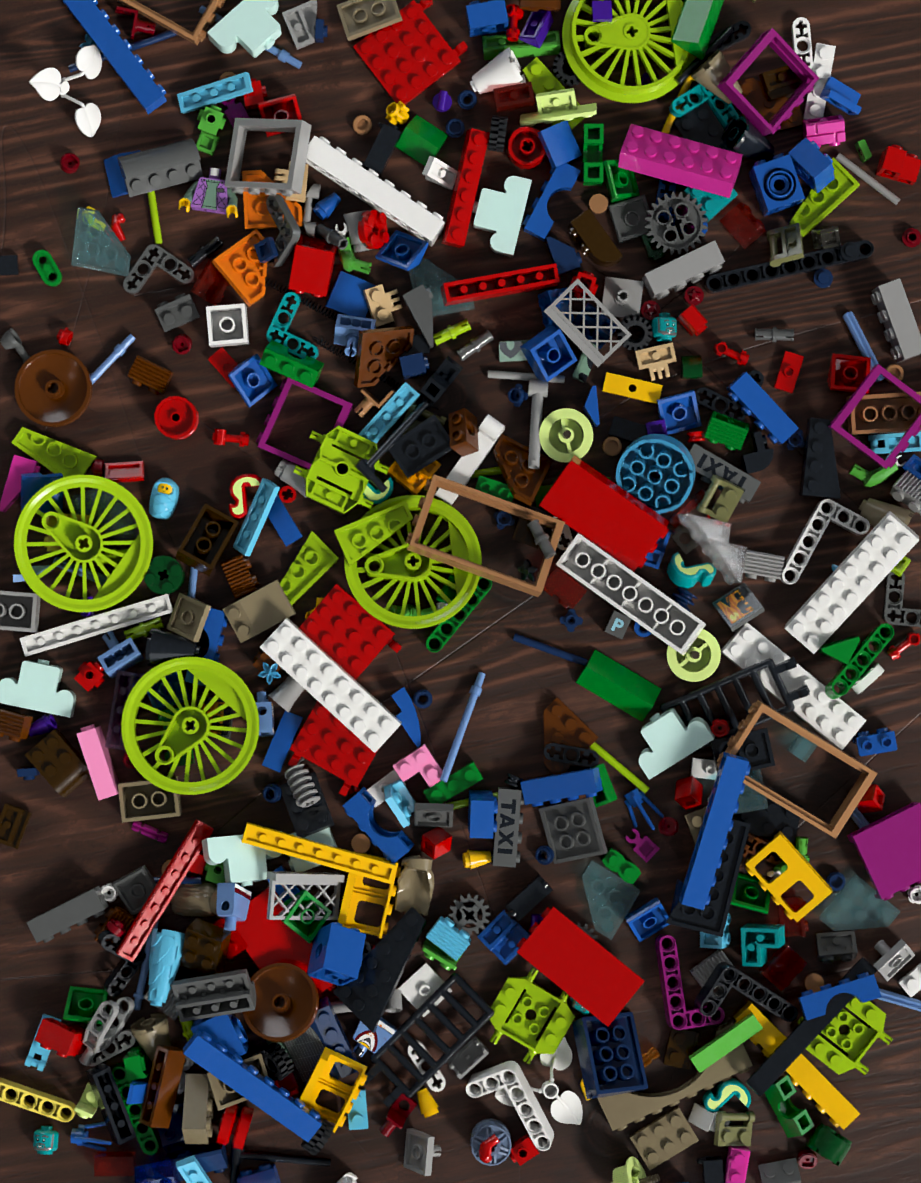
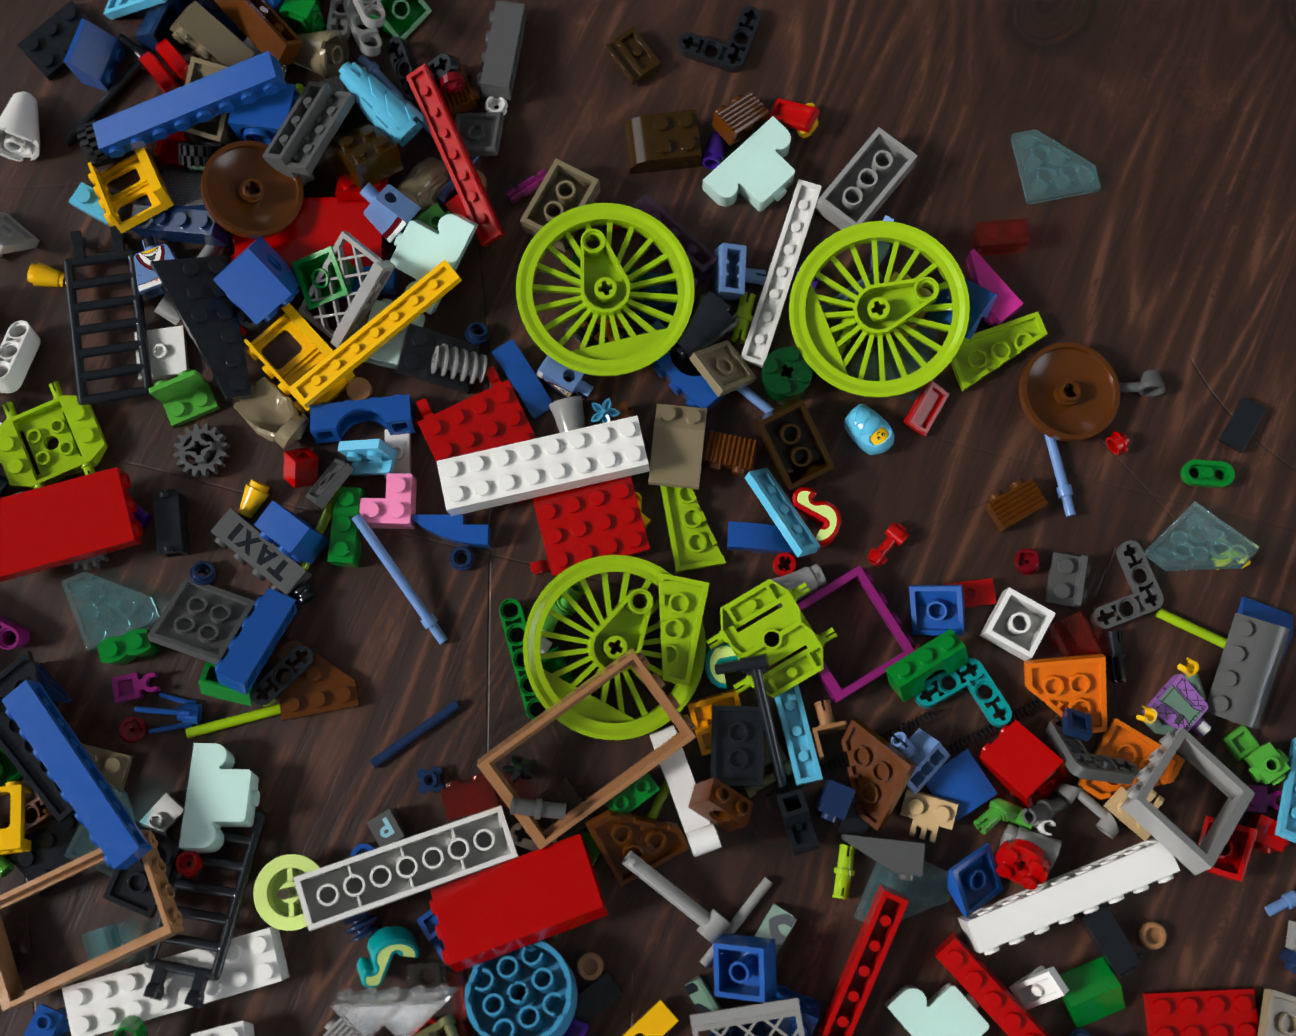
camera: 130 degrees right, 10 degrees down
(27, 773) = (677, 102): dark blue plate -> none
(84, 678) = (732, 228): red brick -> none
(98, 467) = (949, 383): dark red tile -> none
(98, 761) = (635, 177): bright pink brick -> none
(115, 225) = (1209, 578): red arm -> none
(165, 418) = (958, 488): red wheel -> none
(326, 206) = (1082, 829): blue cone -> none
(396, 1116) = (56, 236): dark red bracket -> none
(397, 113) = (1141, 986): yellow gear -> none
(438, 1075) = (57, 294): white beam -> none
(449, 938) = (189, 409): medium azure brick -> none
(468, 1057) = (56, 349): light grey hinge -> none
(474, 345) = (811, 888): dark grey pin -> none
(501, 523) = (591, 777): dark blue plate -> none
(503, 936) = (151, 470): blue slope -> none
(512, 395) = (724, 891): dark blue plate -> none
(566, 434) = (638, 921): yellowish green piece -> none
(591, 407) = (650, 974): blue slope -> none
(618, 685) = (321, 783): green slope -> none
(647, 919) = (54, 636): blue slope -> none
(688, 792) = (150, 778): red panel -> none
(738, 606) = (307, 983): tile -> none

